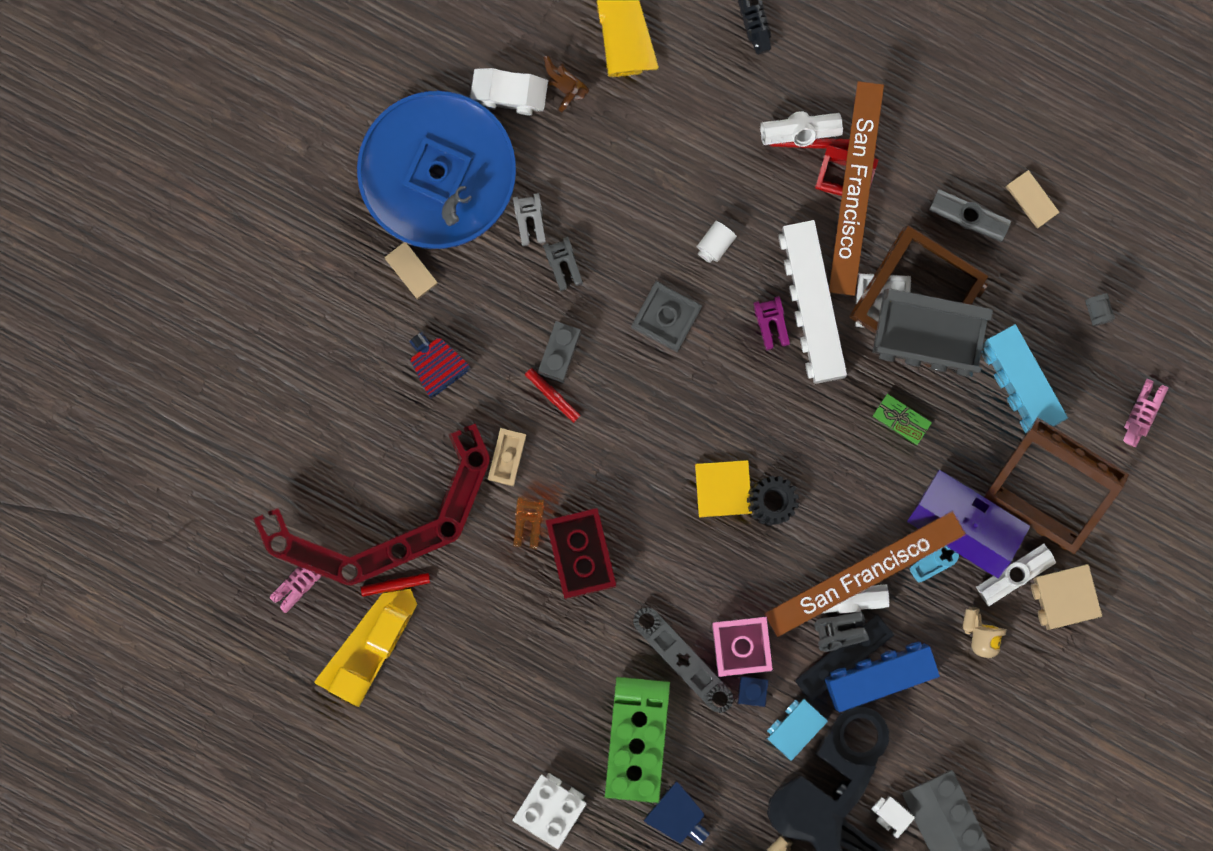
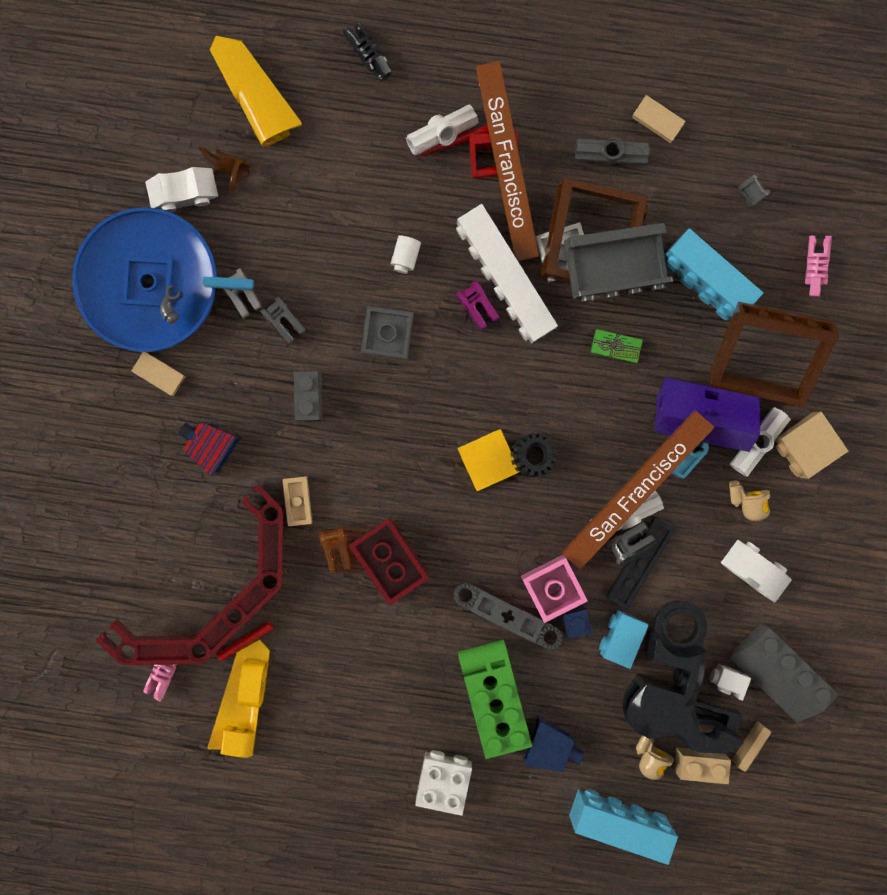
camera: 20 degrees left, 5 degrees up
(523, 206) = (228, 283): none -> dark azure tile
(552, 395) = (316, 434): red piece -> none
(882, 676) = (679, 569): blue brick -> none
(962, 708) = (756, 570): none -> white brick

